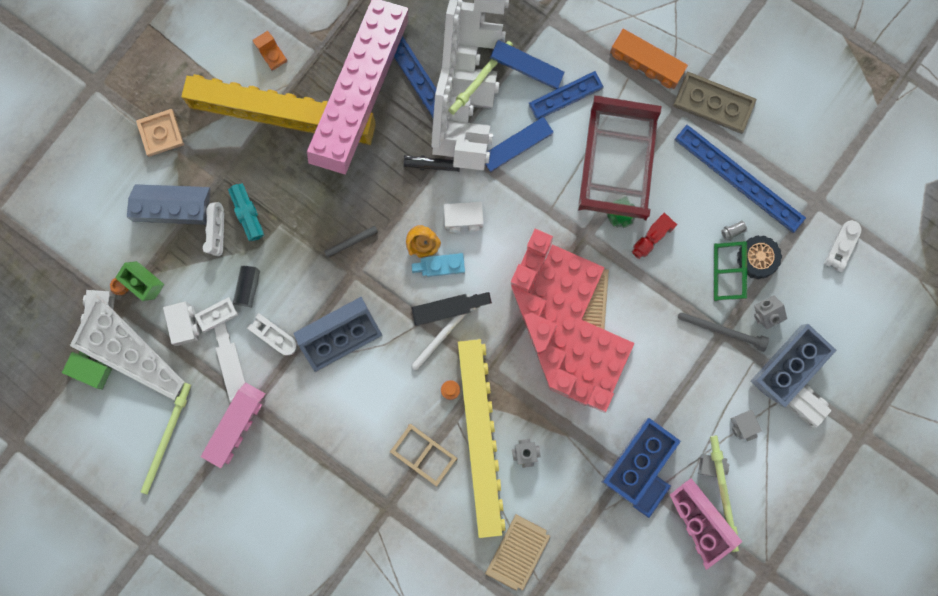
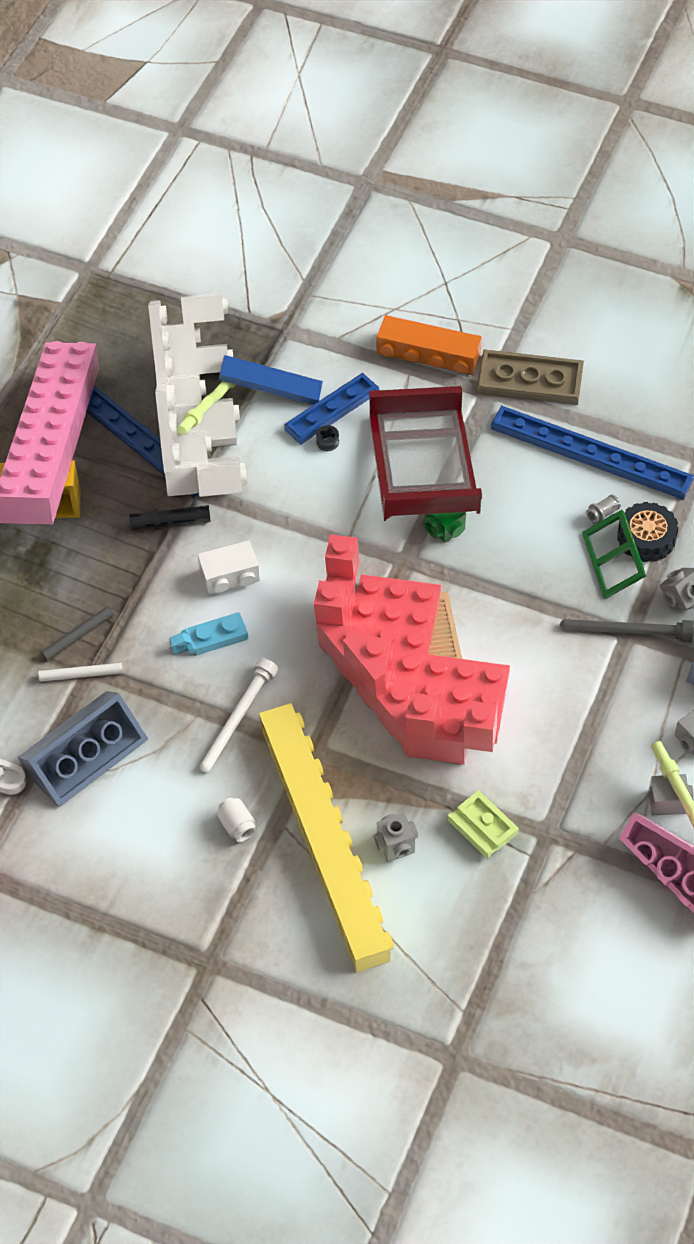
camera: 15 degrees left, 25 degrees down
(348, 272) = (80, 672): none -> white bar
(414, 467) = (236, 898): tan window -> none
(416, 238) = (172, 600): light orange hair -> none
(426, 413) = (236, 819): none -> white brick
(448, 308) = (235, 679): black piece -> none
(450, 390) = (264, 784): orange plate -> none
(518, 143) = (280, 474): blue tile -> none
(518, 553) = (421, 980): tan window -> none
(557, 127) = (324, 432): none -> black bush
(585, 456) = (483, 824): none -> yellowish green plate
(641, 461) = (563, 808): blue brick -> none
(652, 497) = (595, 857): blue tile -> none
(653, 236) = (499, 532): red piece -> none

